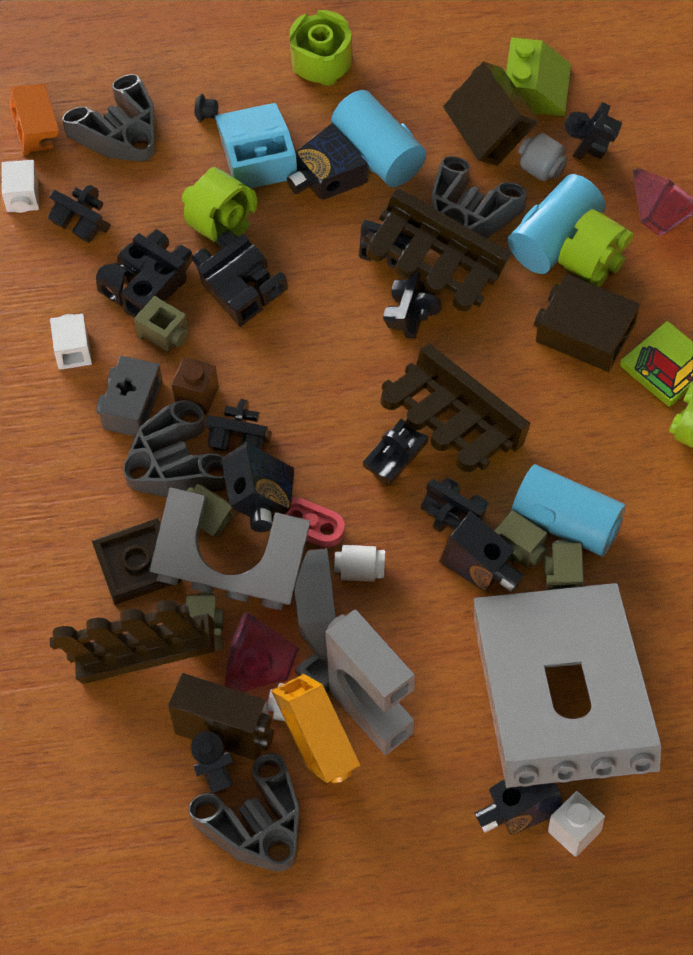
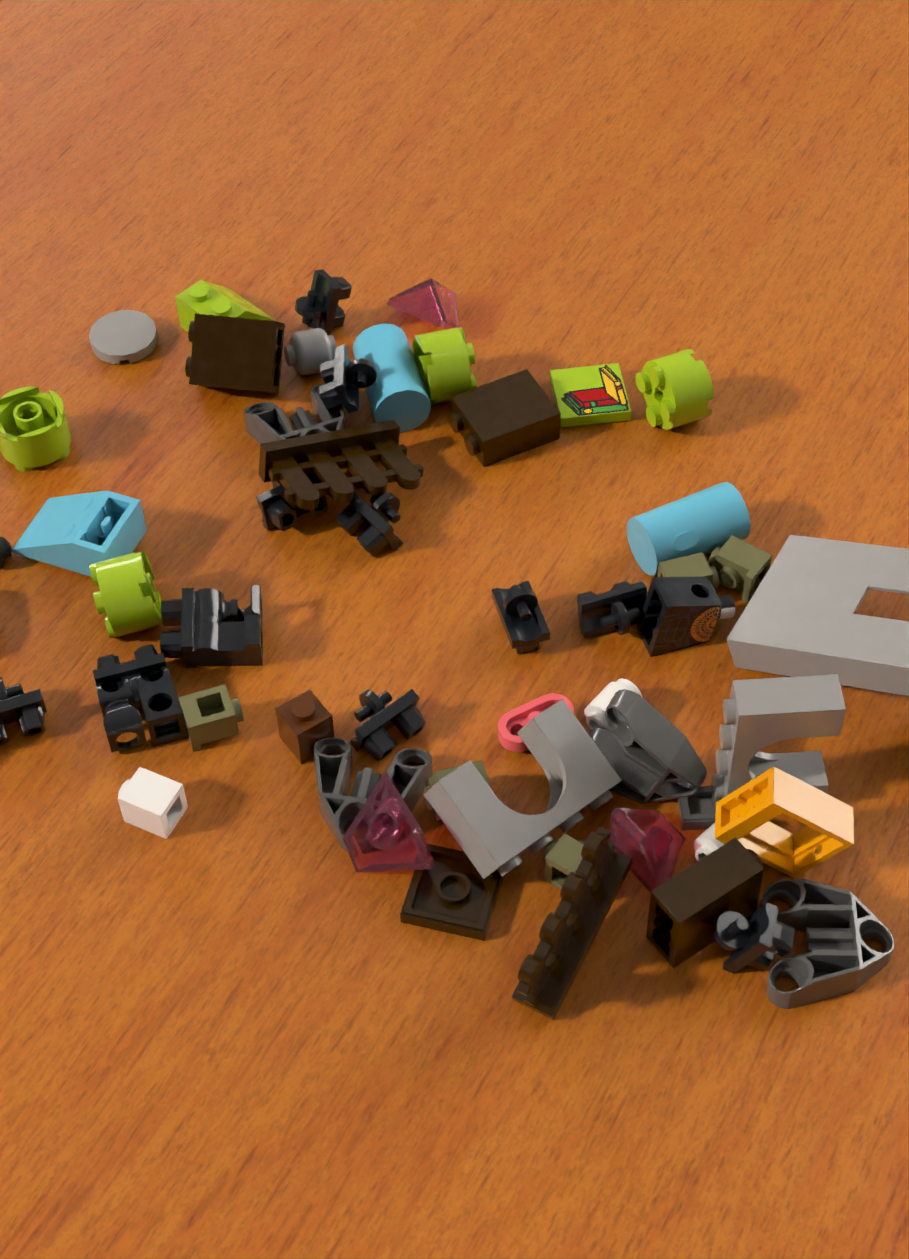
camera: 55 degrees left, 10 degrees down
(130, 395) = (265, 787): dark grey brick -> none
(139, 490) = (386, 834): none -> clear pink slope
(258, 485) = (475, 730): black torso -> none
(328, 165) = (166, 494): black torso -> none
(379, 138) = (175, 442): medium azure piece -> none
(464, 35) = (123, 336): none -> light grey tile
(468, 398) = (510, 533): dark brown fence -> none
(514, 196) = (345, 379): none -> black hips

